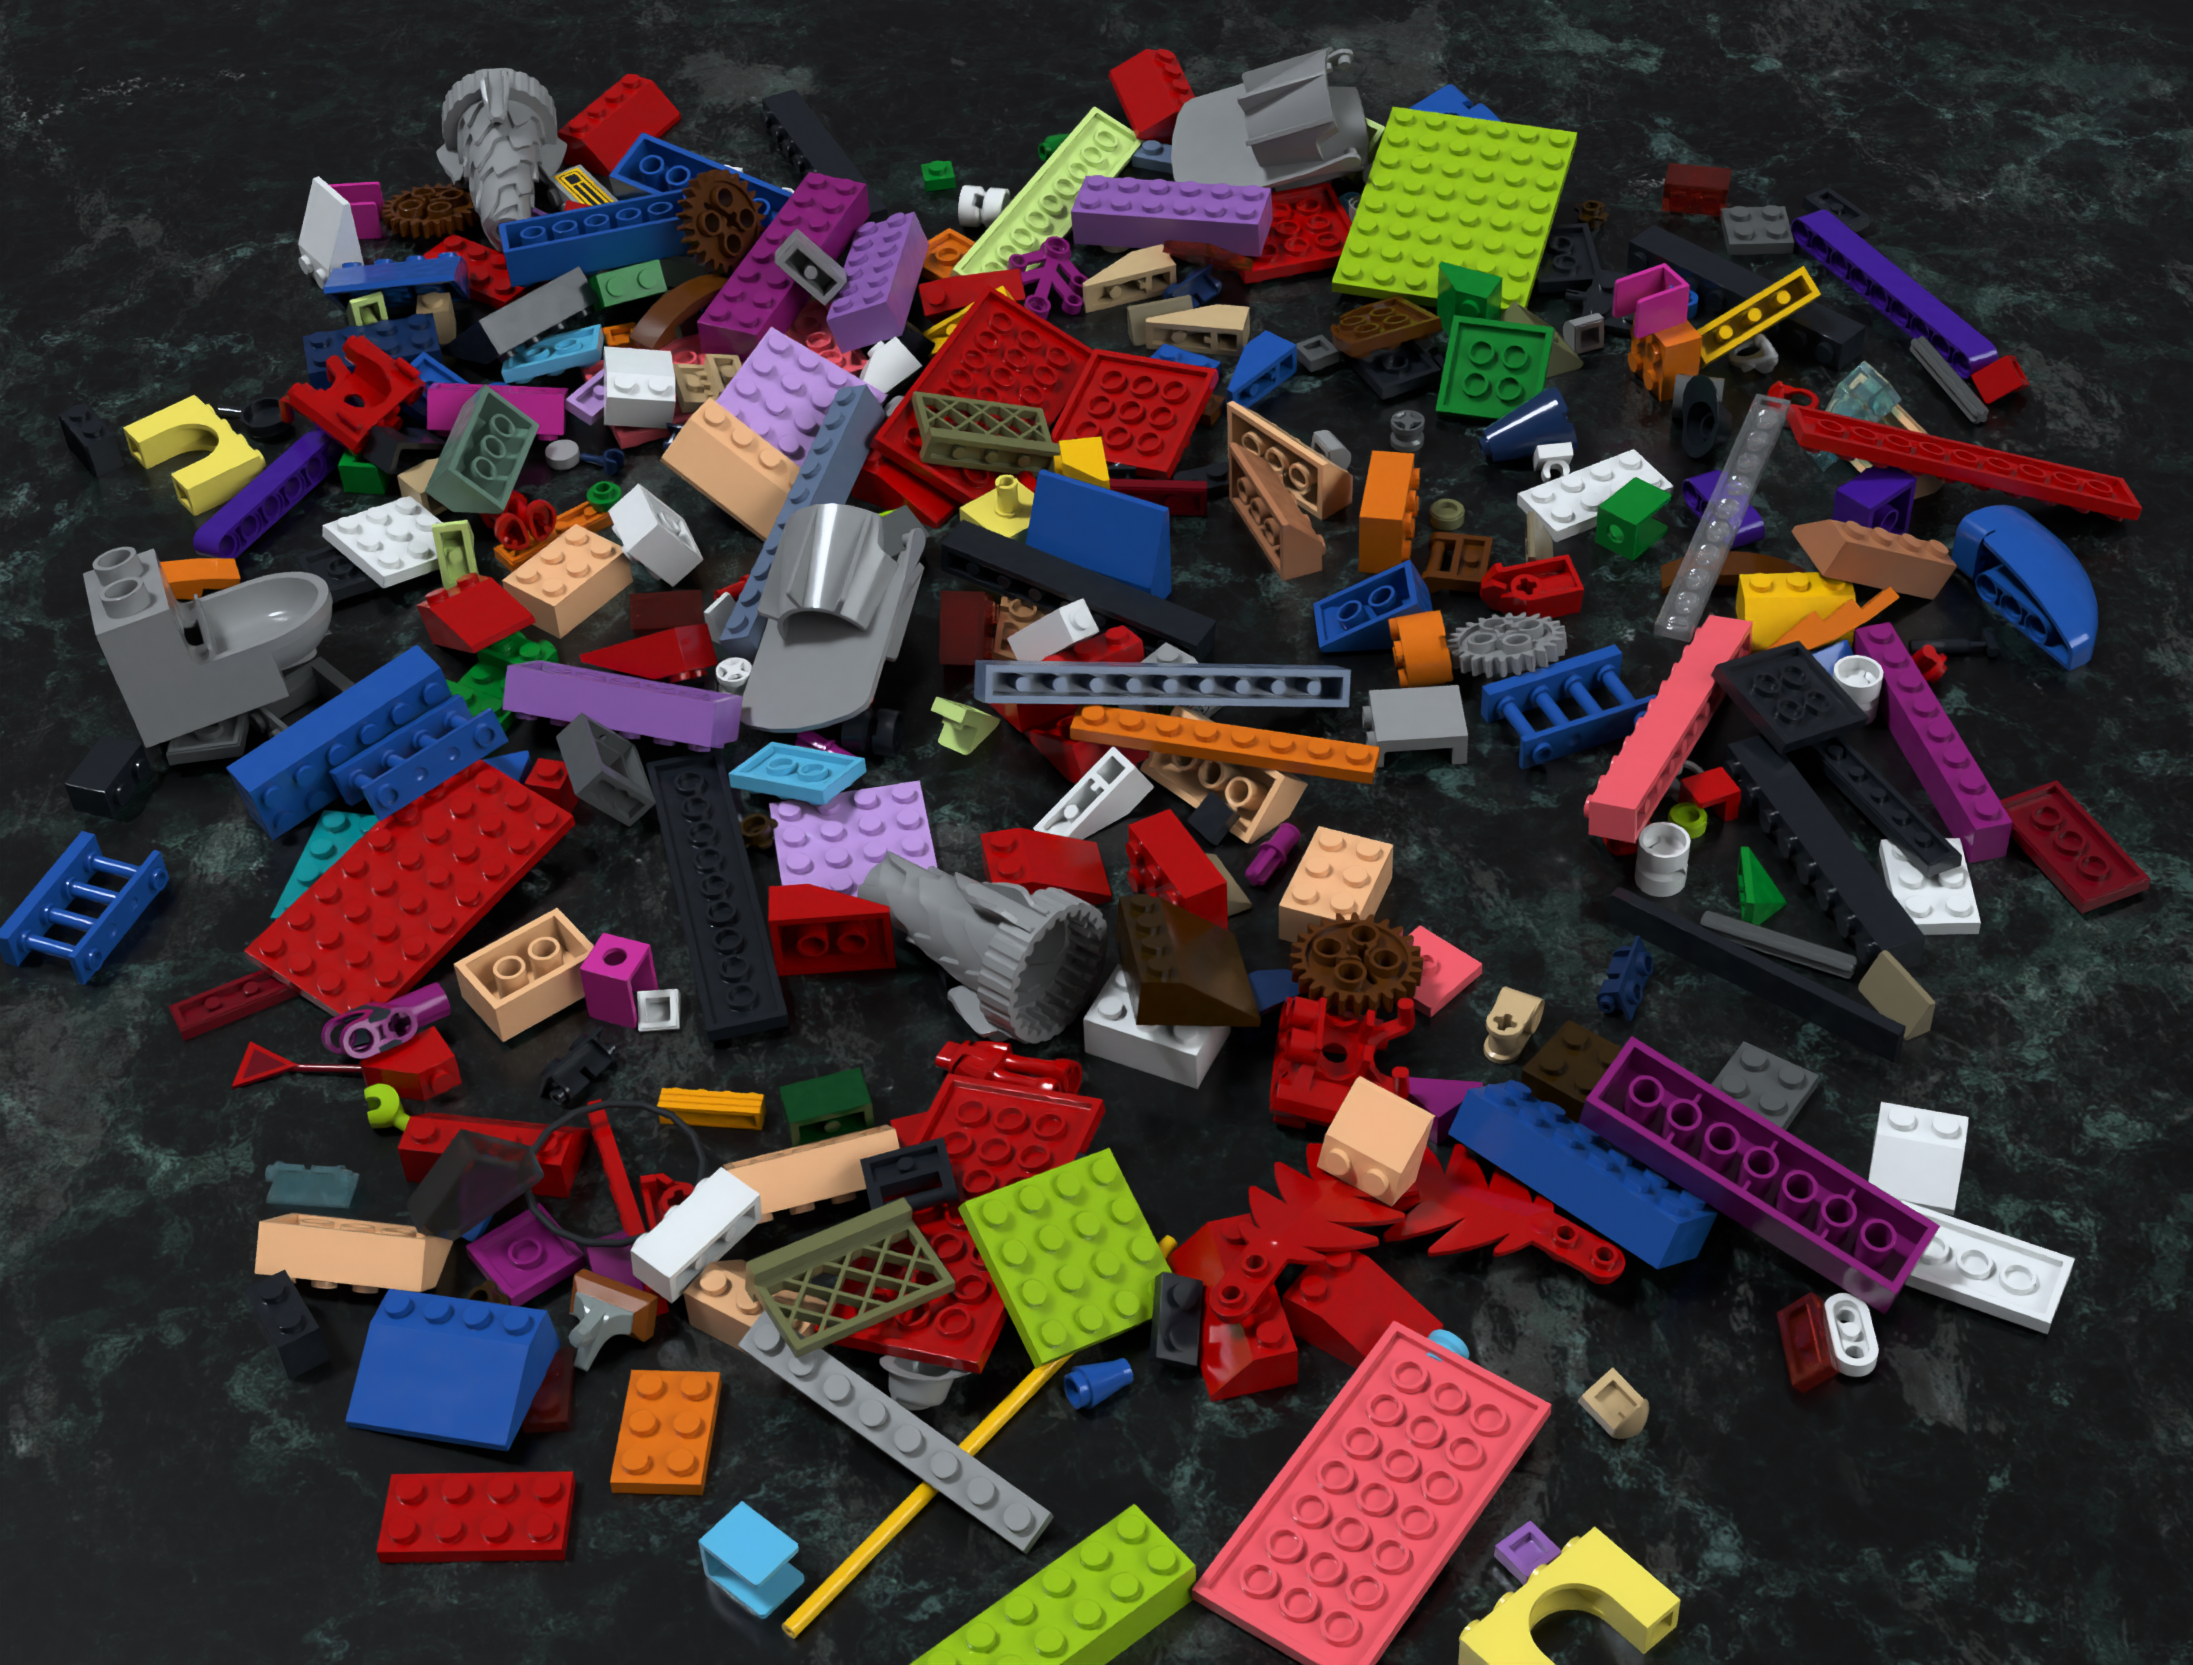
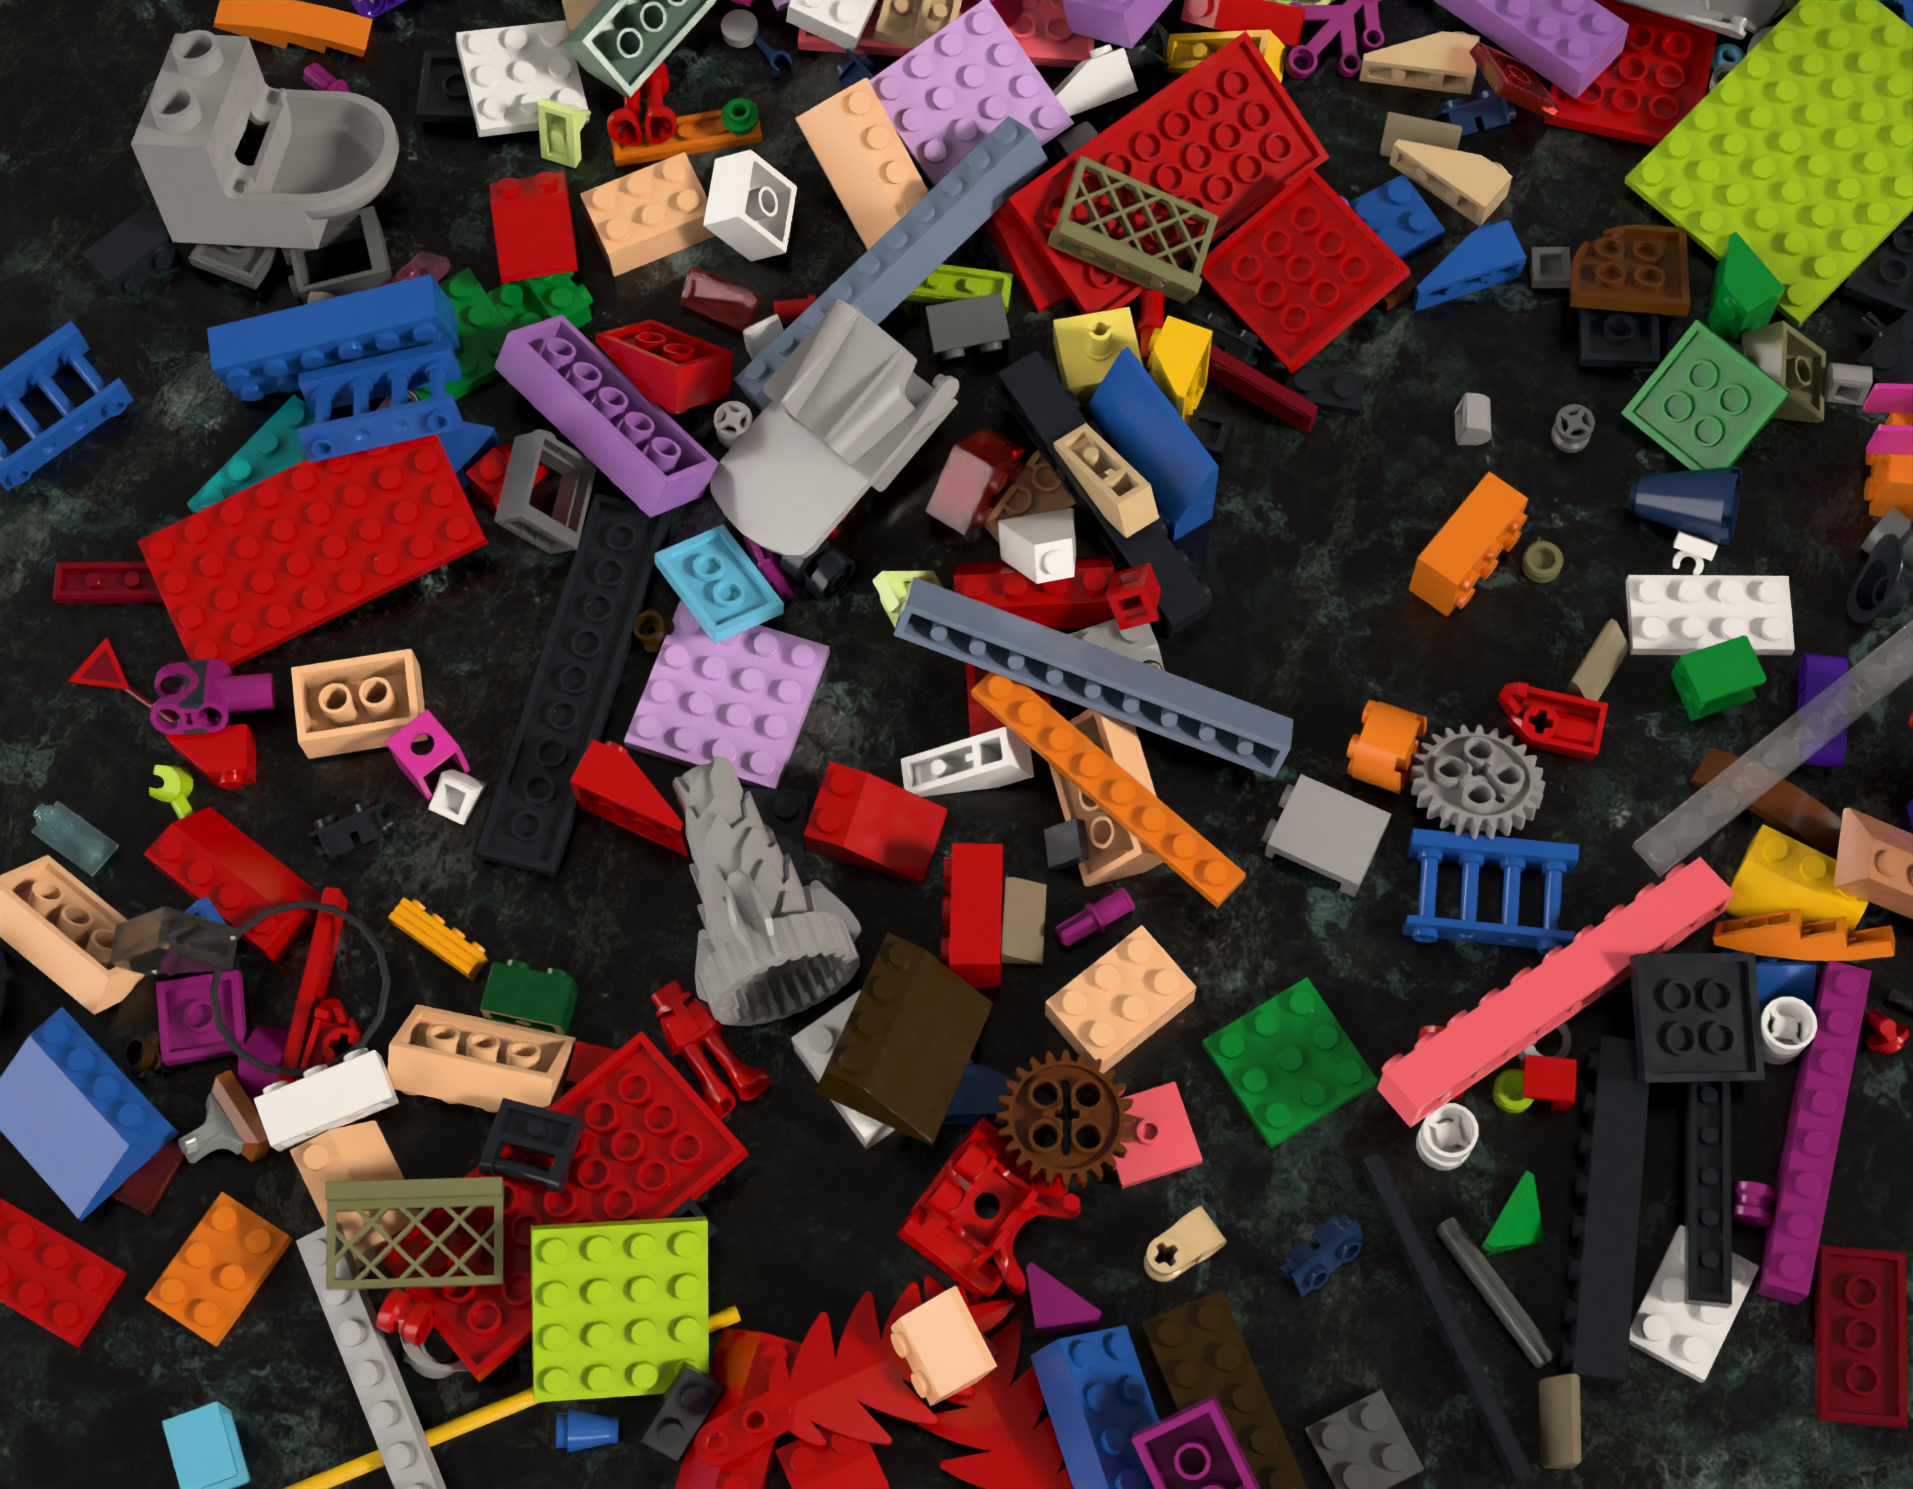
camera: 30 degrees right, 25 degrees up
(894, 1339) = (406, 1316): none -> red wheel
(1087, 568) = (1109, 480): none -> tan slope
(1157, 627) = (1134, 596): none -> red brick
(1273, 515) = (1362, 482): nougat slope -> none
(1313, 479) = (1421, 414): light nougat slope -> none
(1360, 614) = (1380, 662): blue slope -> none
(1468, 564) = (1516, 645): reddish brown plate -> none
(1499, 879) = (1289, 1062): none -> green plate
(1923, 797) = (1752, 1203): none -> magenta wheel

